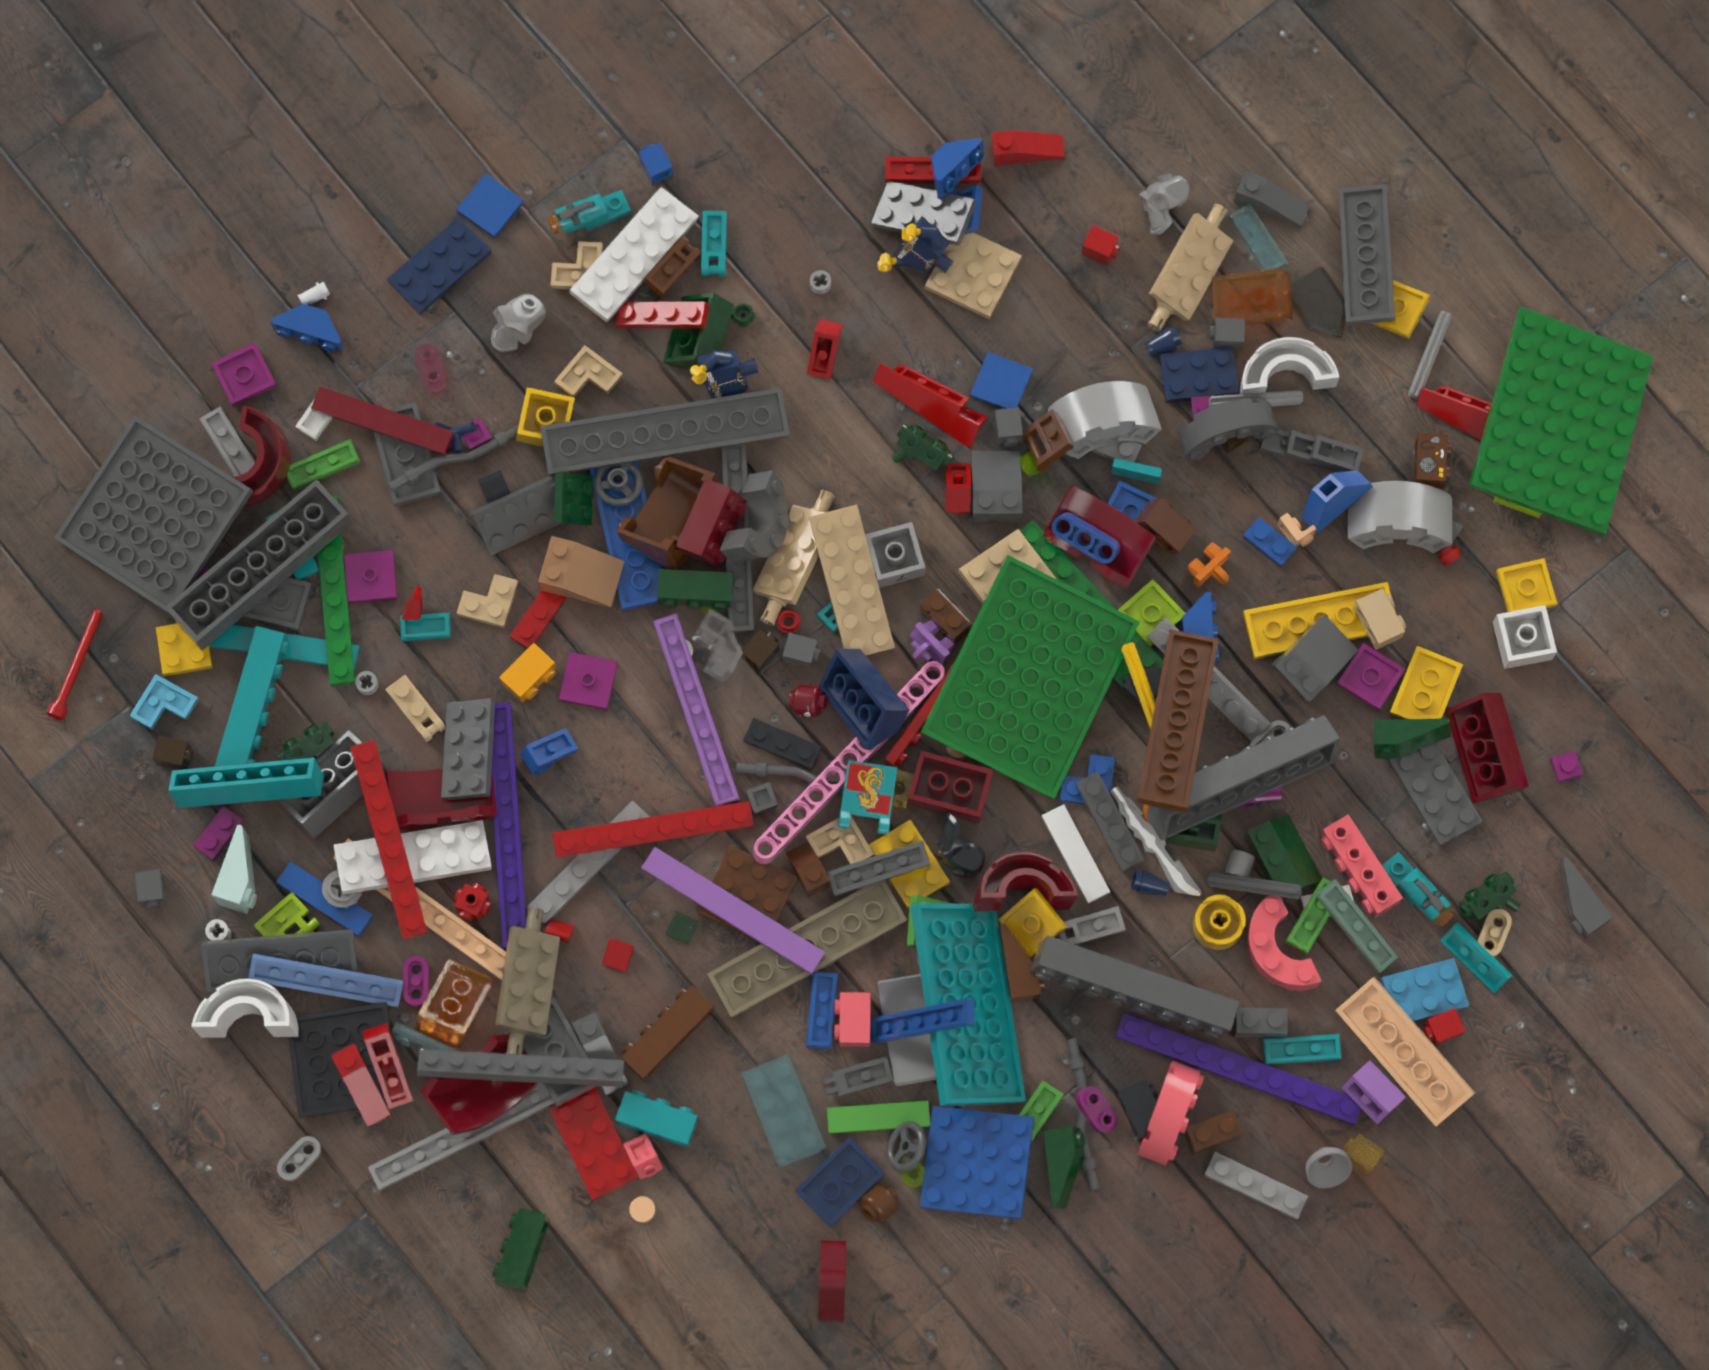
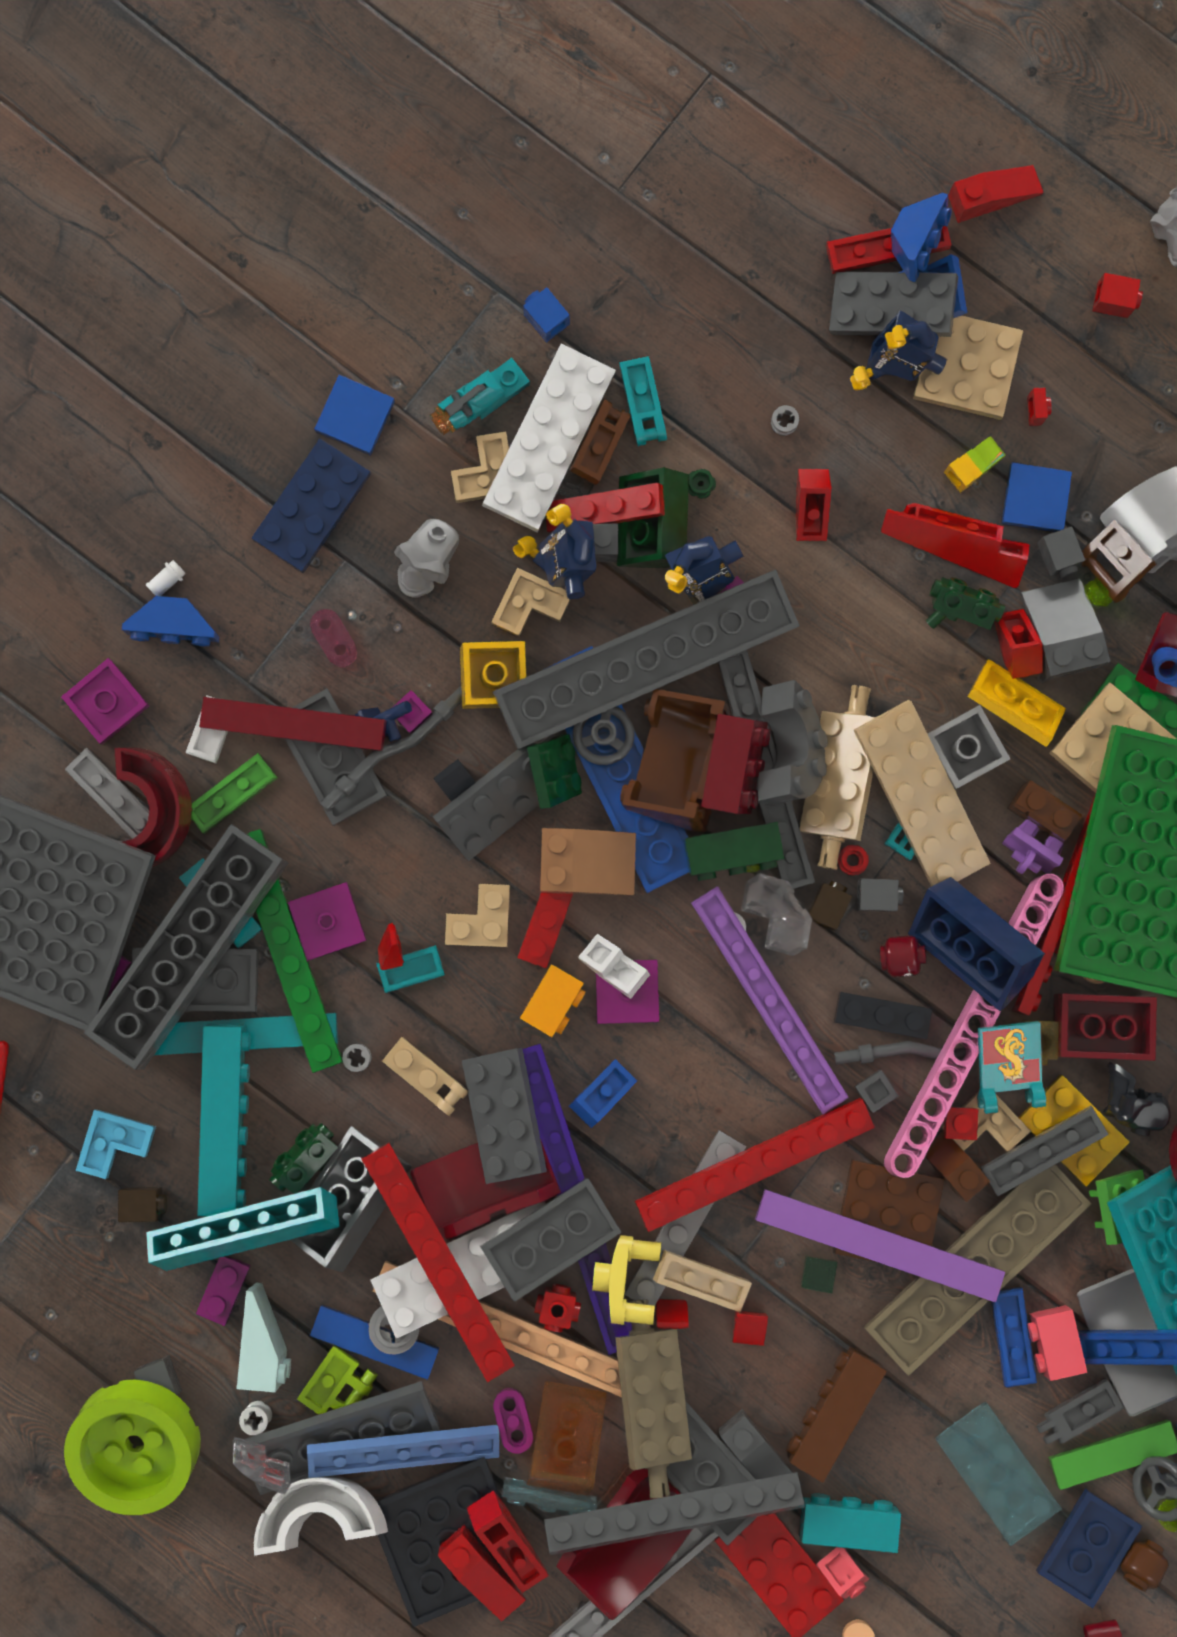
camera: 15 degrees left, 10 degrees up
(94, 929) = (126, 1477): none -> lime brick
(179, 652) = (113, 1077): yellow plate -> none
(209, 954) = (266, 1471): none -> clear slope
(479, 845) = (550, 1239): none -> dark grey plate
(521, 886) = (612, 1279): none -> light yellow connector
(581, 657) = (614, 966): none -> white slope
(589, 907) = (702, 1281): none -> tan plate
(624, 340) = (564, 554): none -> dark blue torso
(654, 341) = (606, 542): none -> dark grey brick
(820, 834) = (961, 1123): none -> red plate
(944, 529) = (1017, 703): none -> yellow tile
(958, 346) = (974, 464): none -> leg
(1019, 314) = (1038, 406): none -> red plate

